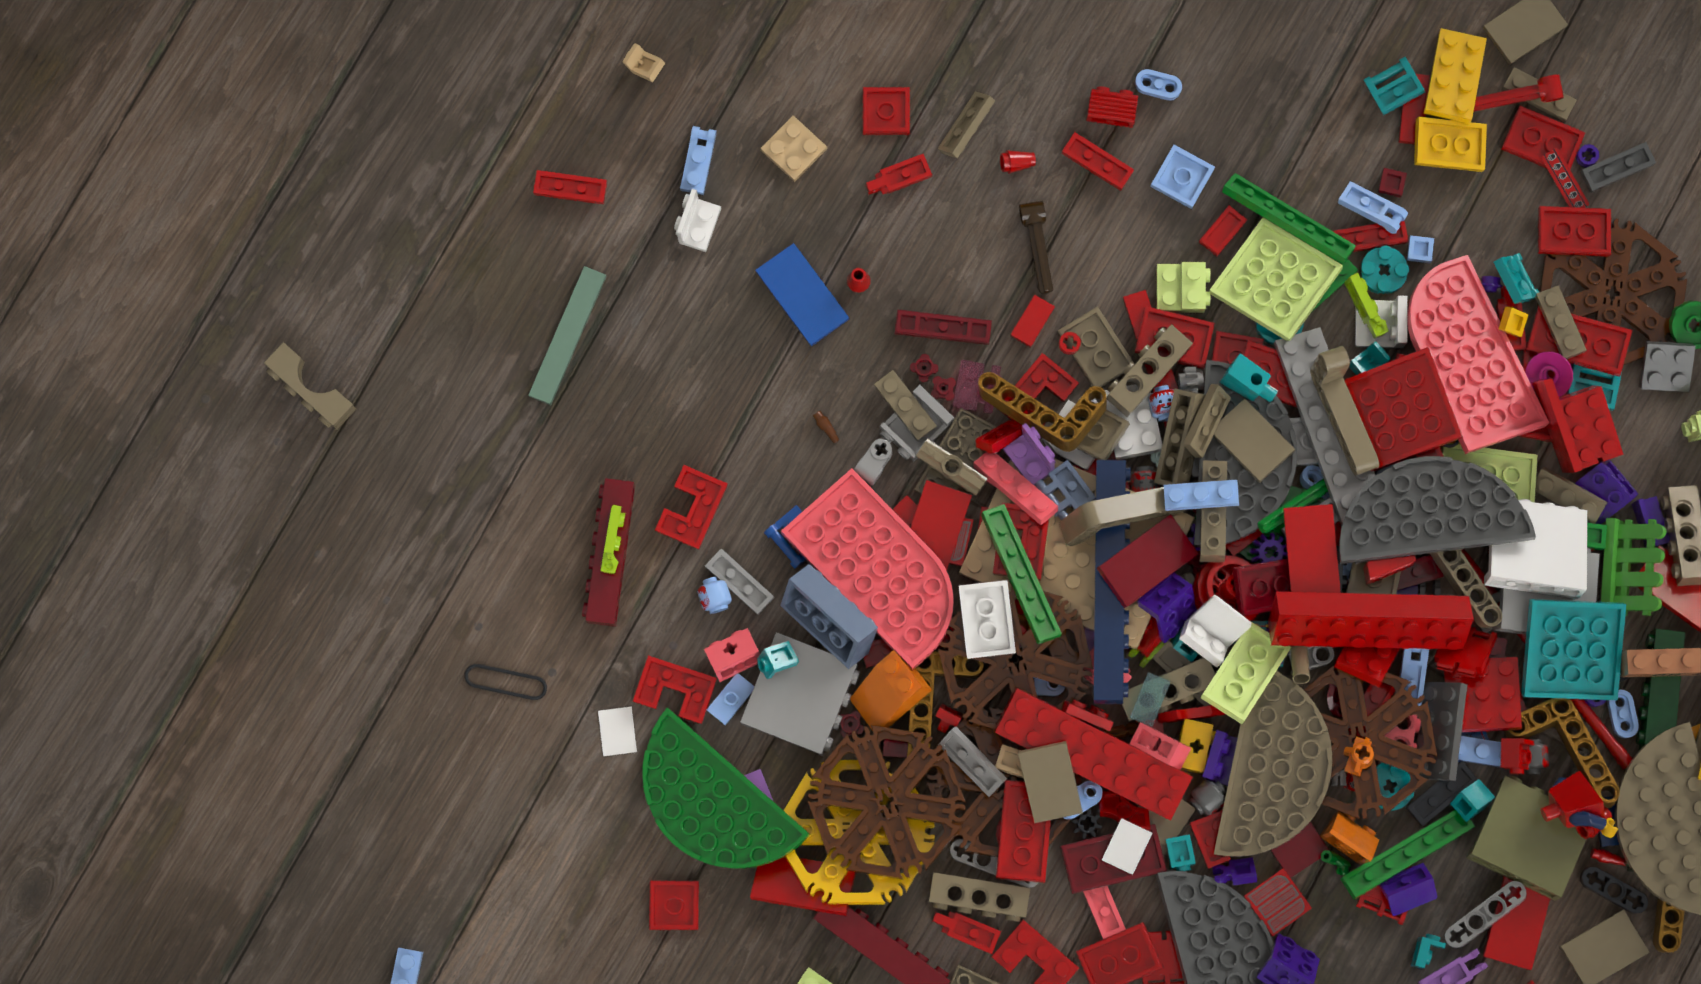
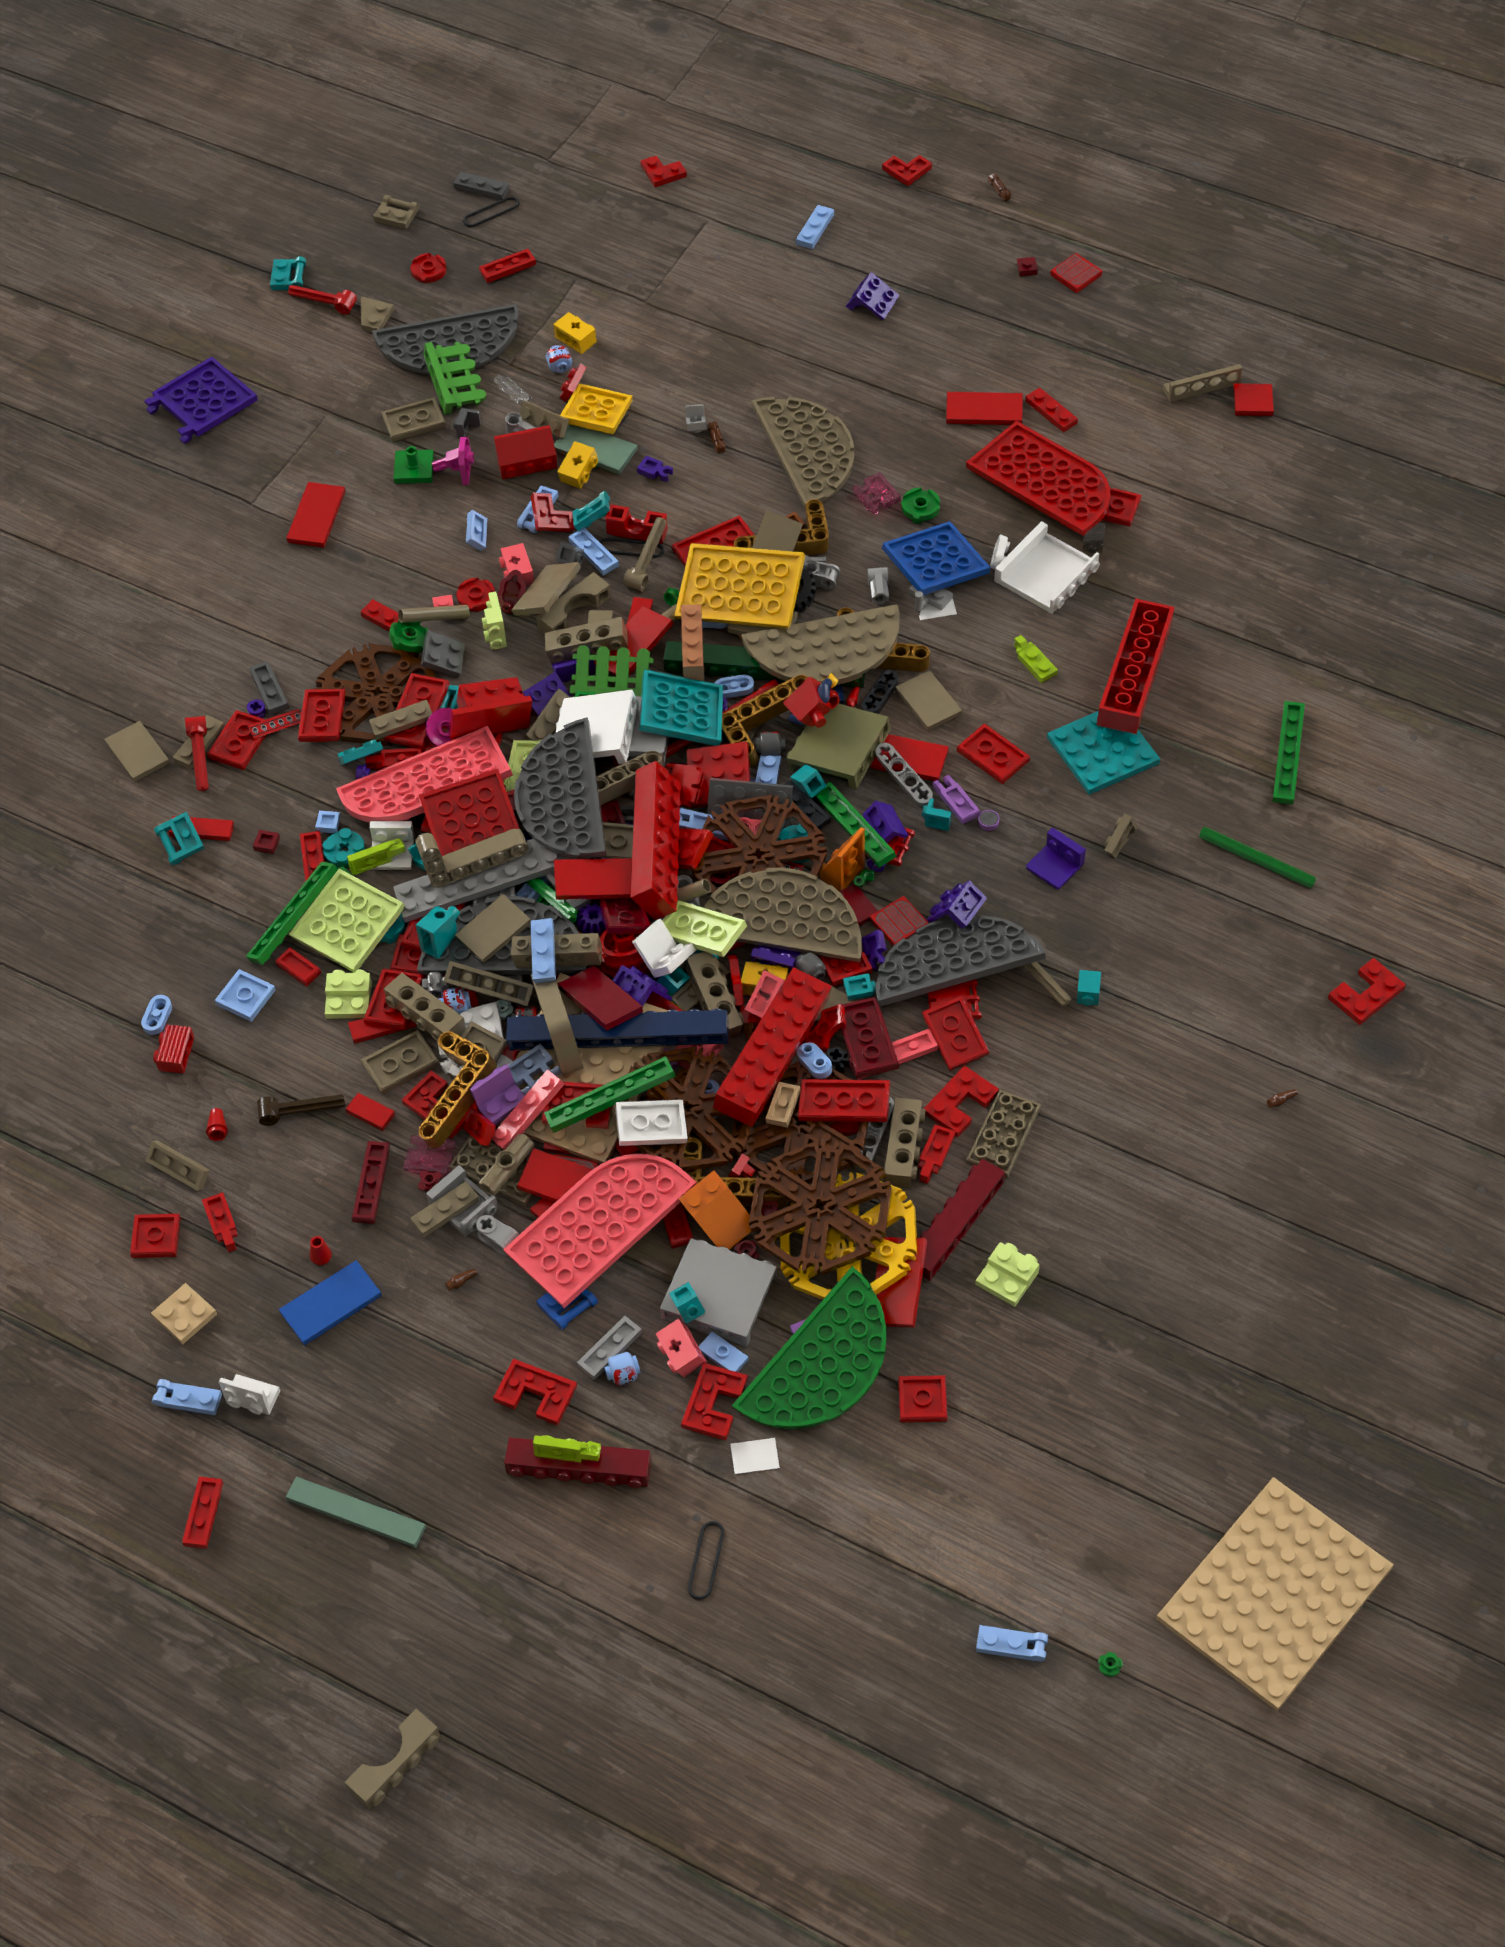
camera: 90 degrees left, 25 degrees down
(643, 63) = (82, 1447): tan bracket -> none
(829, 616) = (645, 1258): sand blue brick -> none
(931, 368) = (406, 1193): dark red plate -> none
(972, 761) = (781, 1140): light grey plate -> none
(1050, 782) = (800, 1070): dark tan tile -> none
(1063, 347) = (398, 1081): red bush -> none
(1092, 715) = (740, 1041): red plate -> none
(1097, 161) = (223, 1061): red plate -> none
(1127, 846) = (855, 1022): white sticker -> none
(1150, 699) = (720, 999): clear light blue tile -> none
(1206, 420) = (474, 959): dark tan plate -> none
(1359, 756) = (772, 848): orange piece -> none
(1372, 207) = (287, 853): light blue plate -> none
(1382, 568) = (611, 830): red slope -> none
(1450, 144) = (236, 799): yellow plate -> none
(1455, 76) = (175, 795): yellow plate -> none
(1513, 321) = (398, 751): yellow plate -> none
(1516, 754) = (770, 747): red brick -> none

